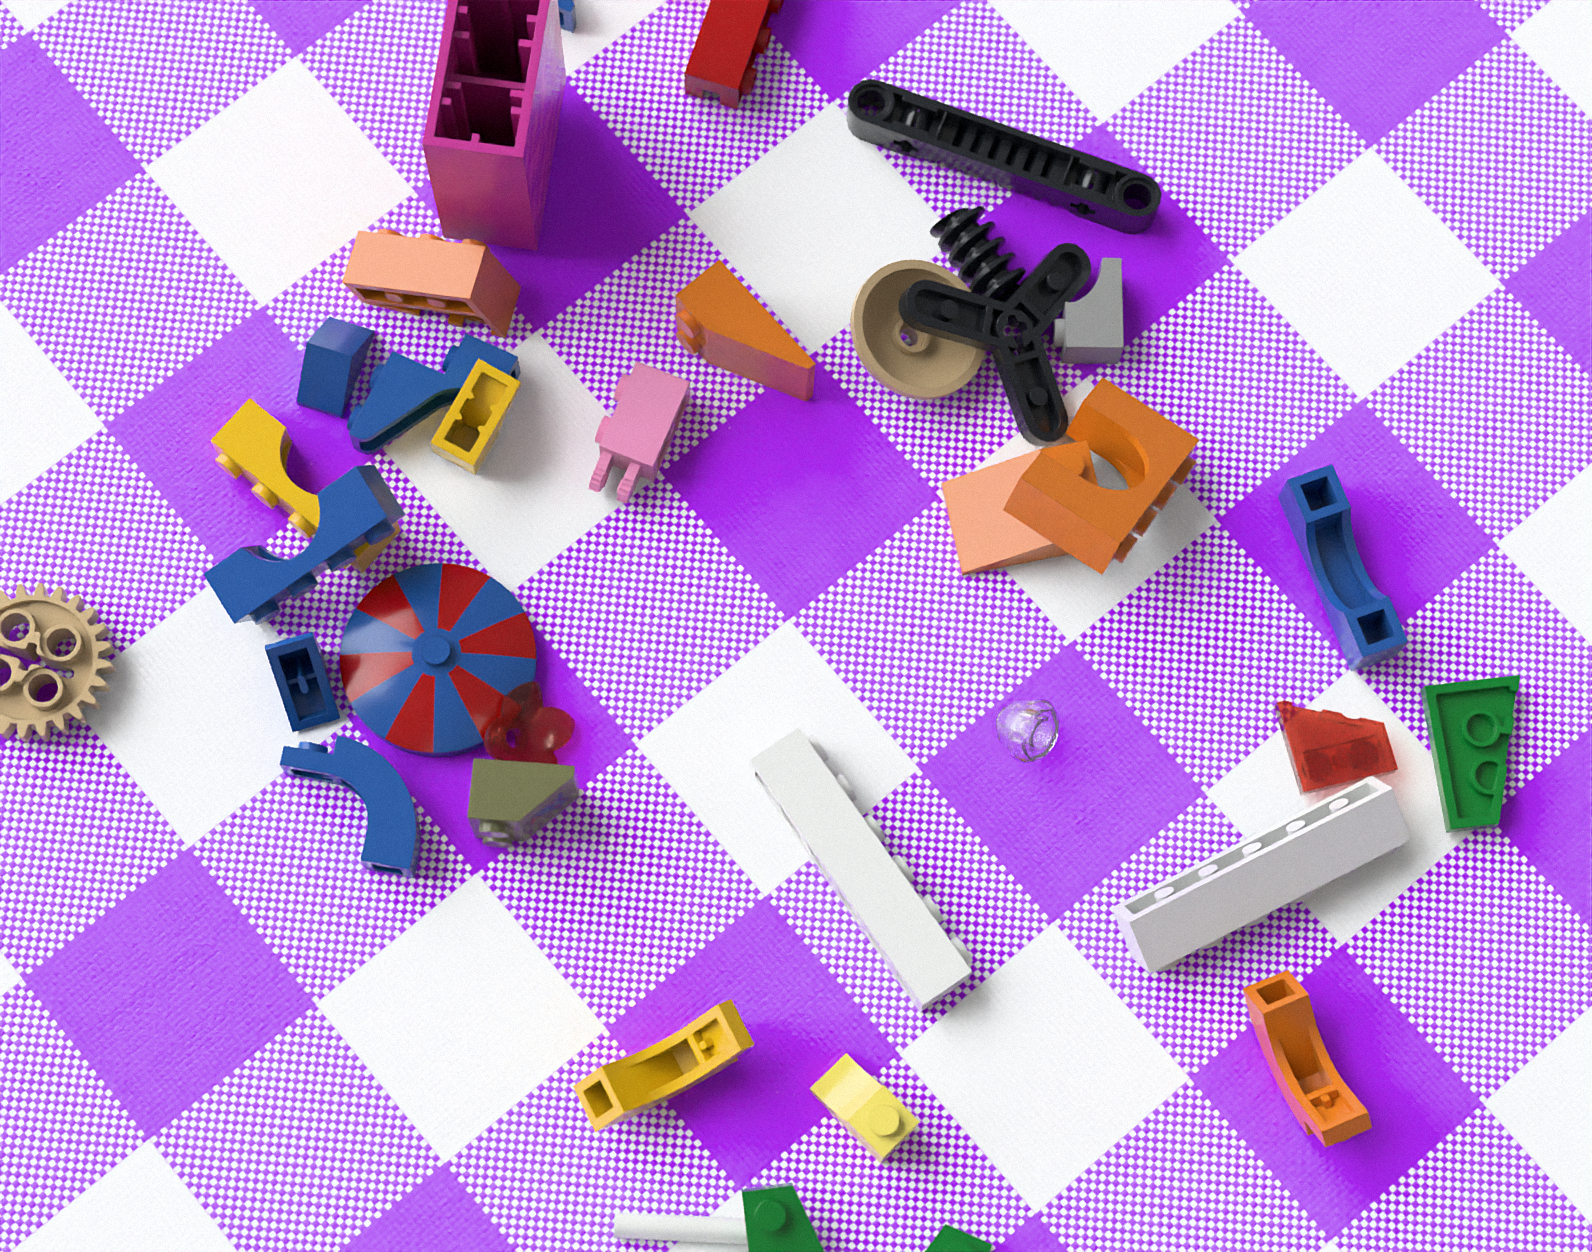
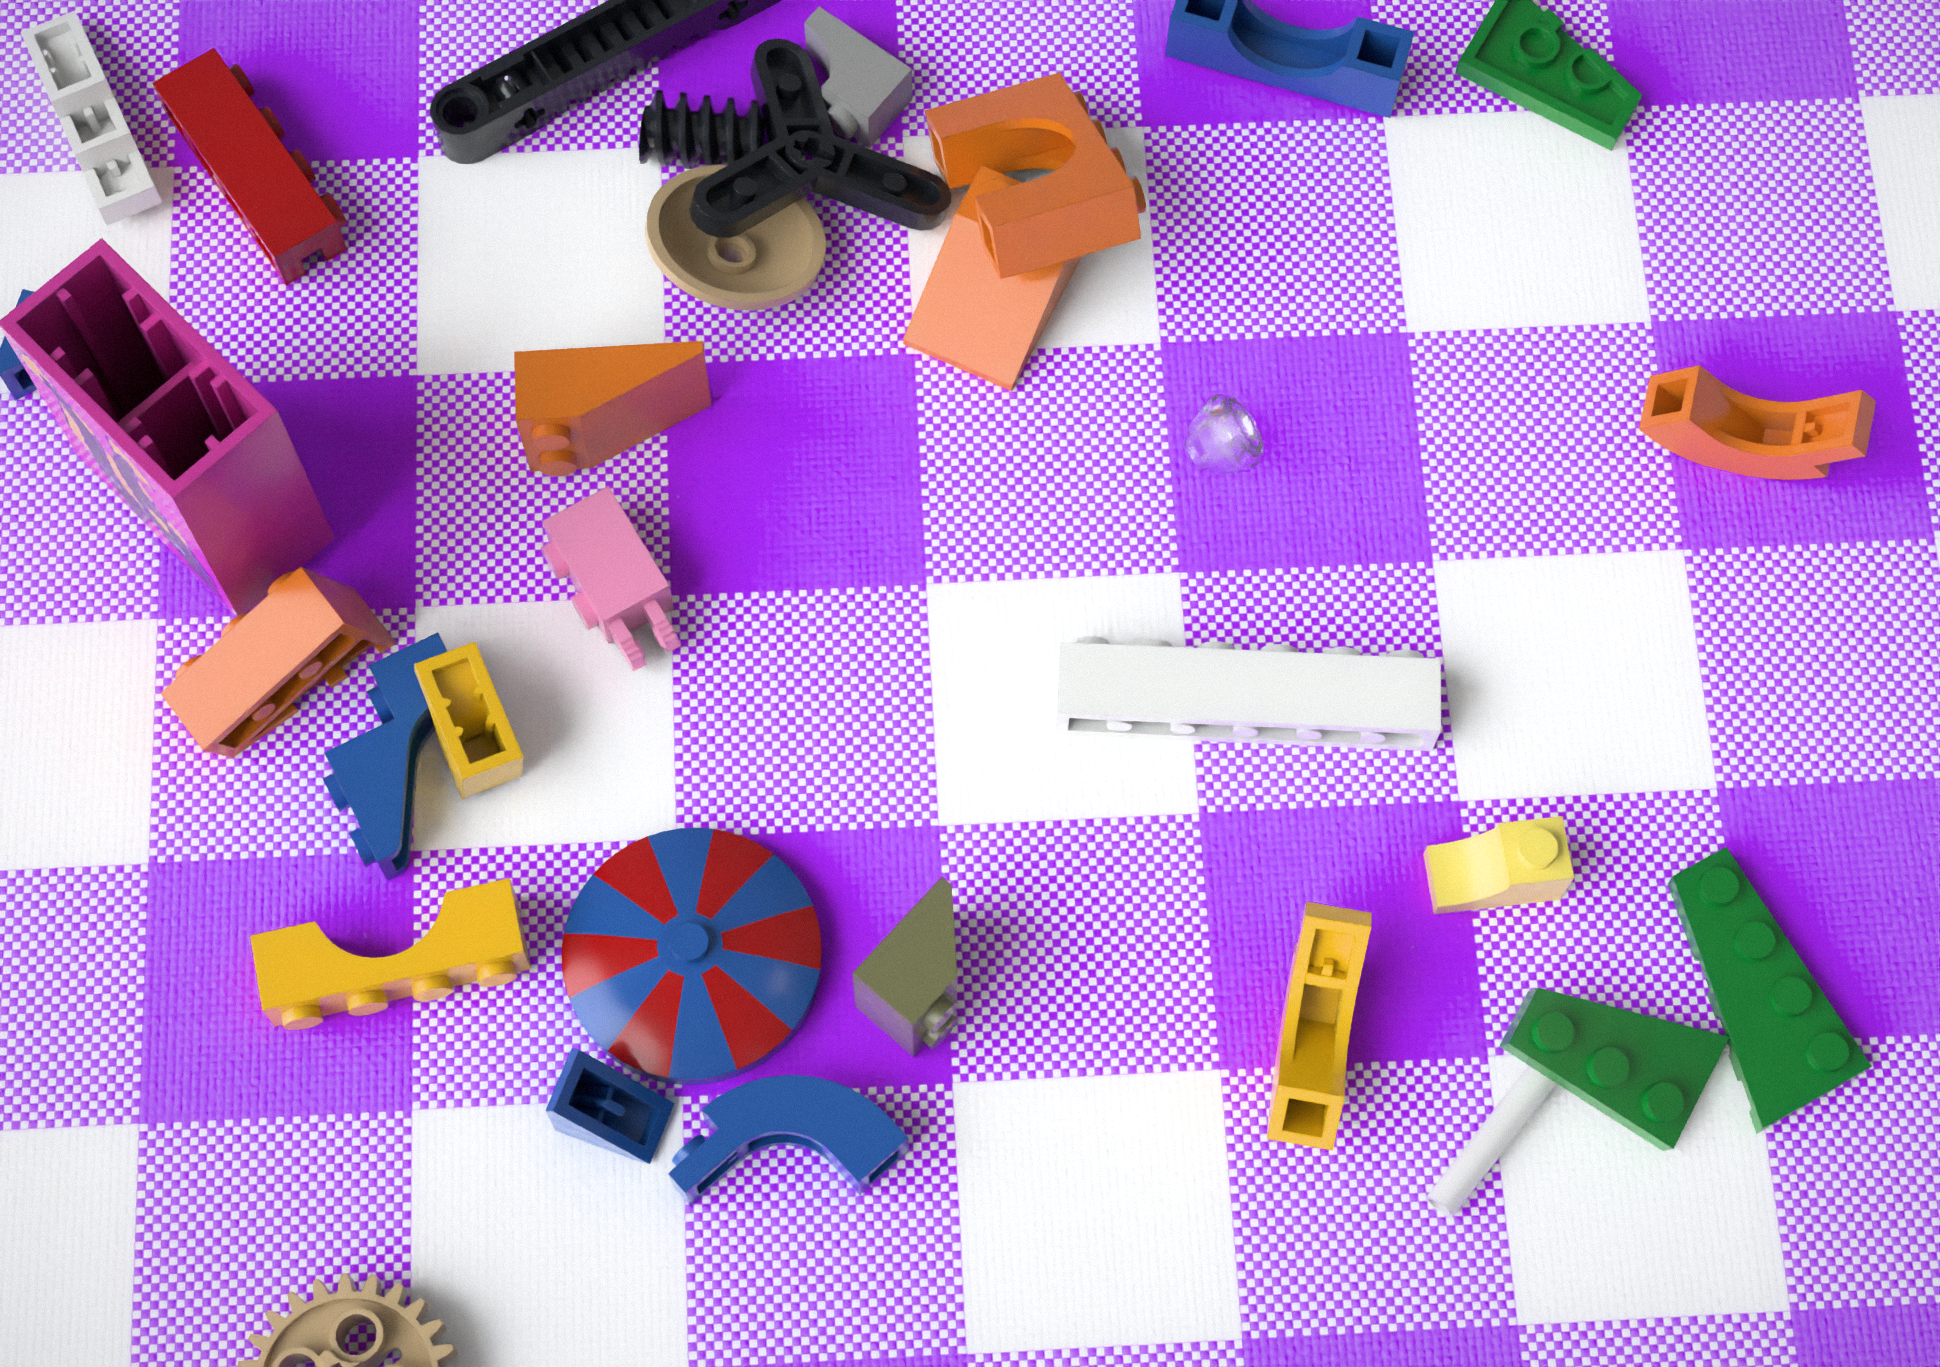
camera: 50 degrees left, 5 degrees down
(333, 366) = (282, 834): blue slope -> none
(352, 512) = (458, 1075): blue arch -> none
(535, 728) = (844, 915): clear red plate -> none
(1262, 874) = (1537, 333): white brick -> none
(1333, 749) = (1454, 185): clear red wing -> none

